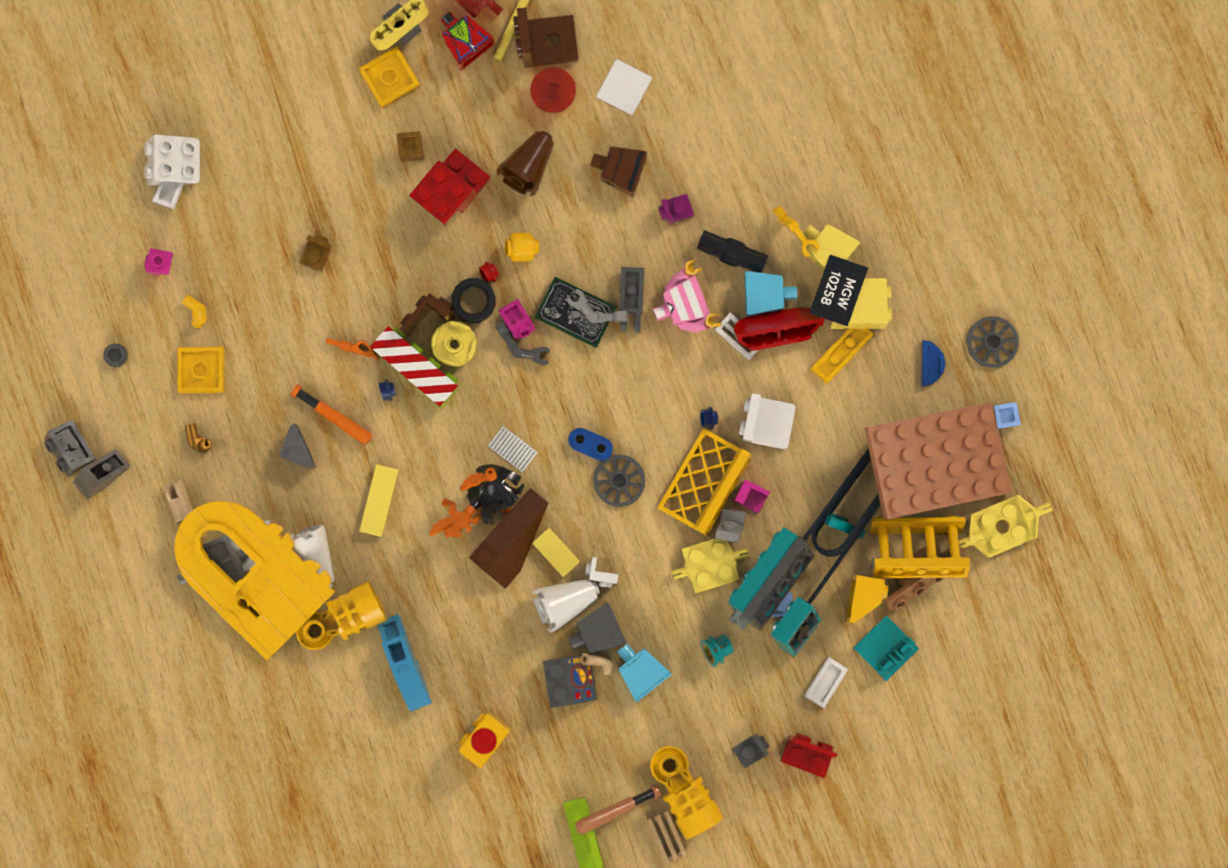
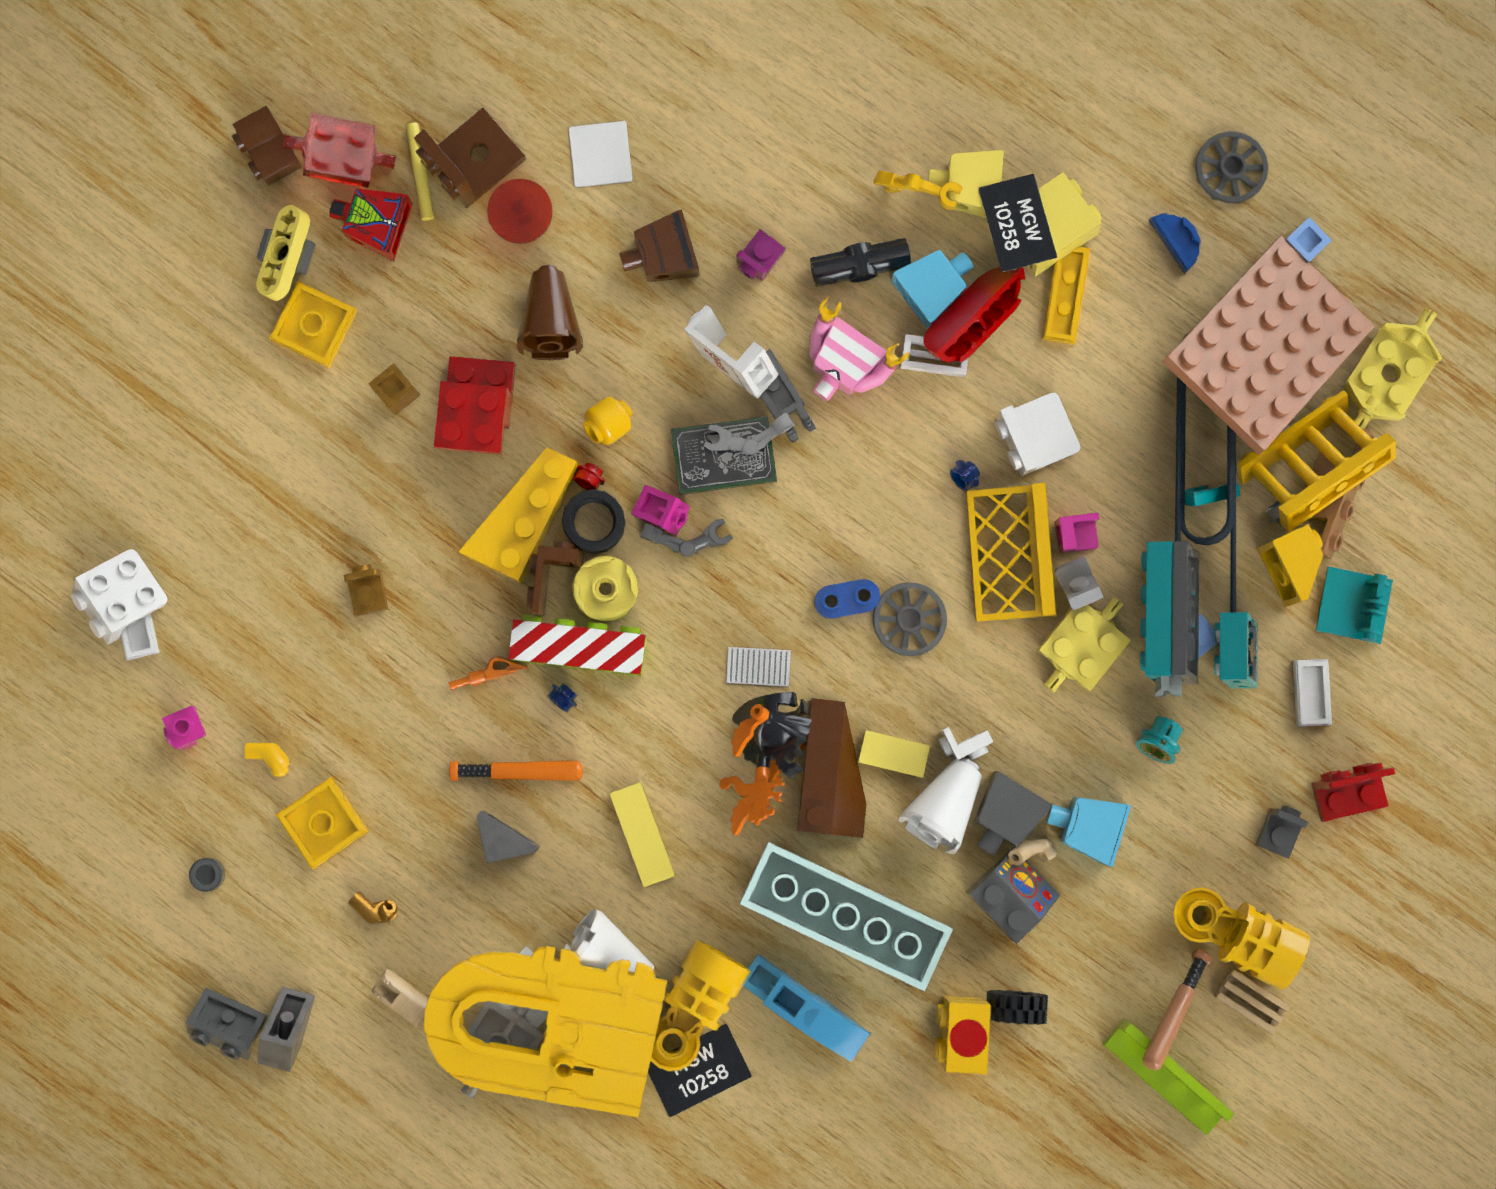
camera: 40 degrees left, 0 degrees up
(327, 663) = (713, 1071): none -> black sticker
(434, 270) = (522, 517): none -> yellow wedge
(463, 625) = (846, 916): none -> light aqua brick
(526, 745) = (1018, 1007): none -> black tyre
(623, 271) = (751, 371): none -> white panel

